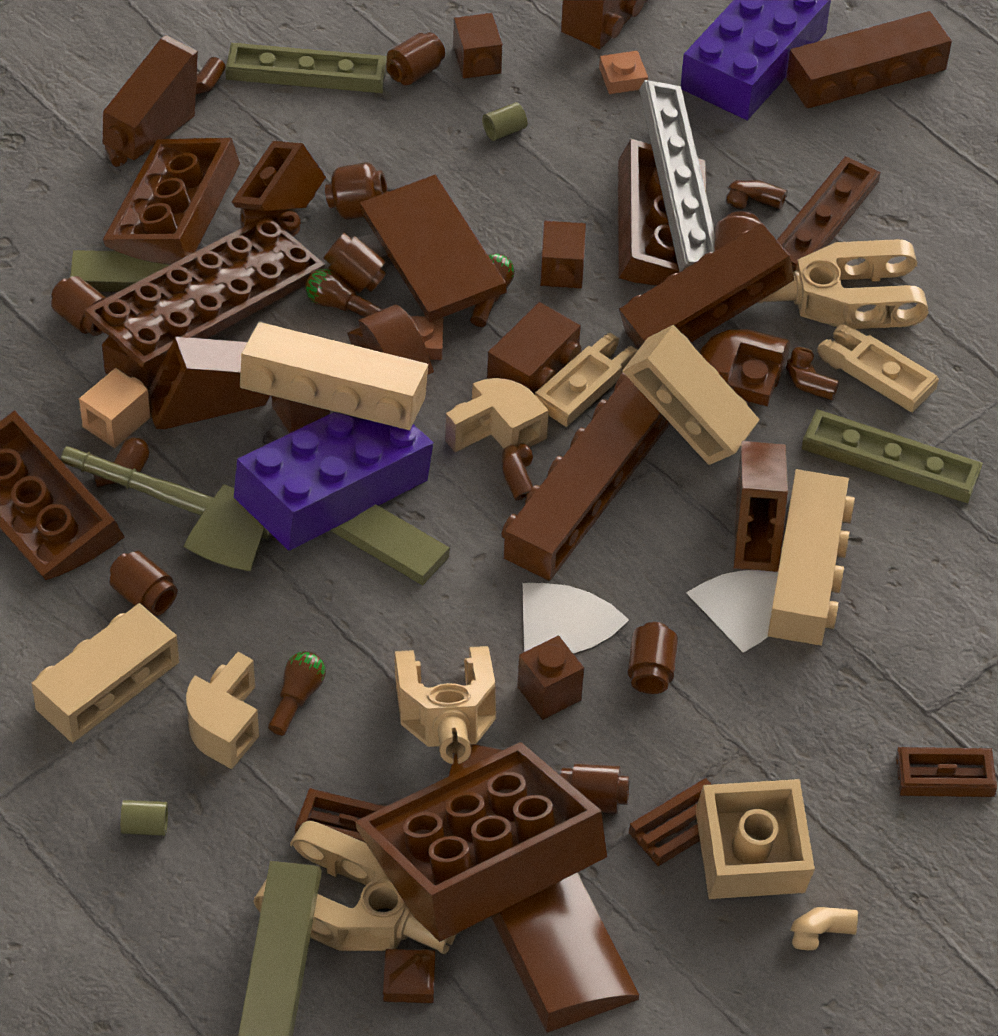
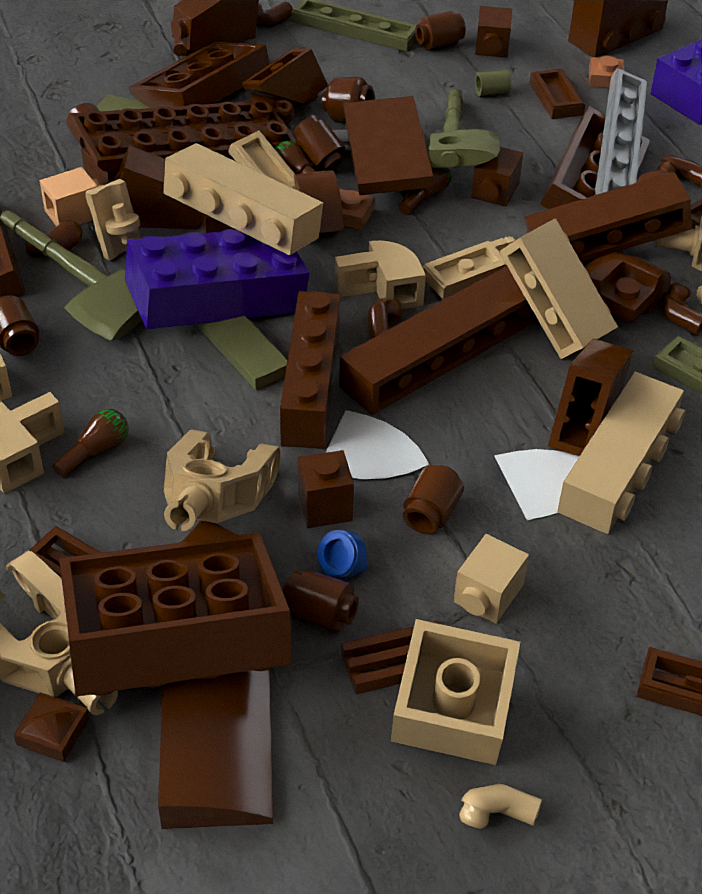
camera: 20 degrees right, 5 degrees down
(187, 427) = (113, 217): none -> tan hips
(308, 308) = (260, 156): none -> tan tile
(476, 550) = (310, 370): none -> reddish brown brick
(514, 235) = (458, 146): none -> olive piece
(535, 348) = (440, 230): reddish brown brick -> none
(579, 117) = (557, 93): none -> reddish brown tile
(593, 738) = (342, 554): none -> blue tile
(738, 723) = (490, 578): none -> tan brick

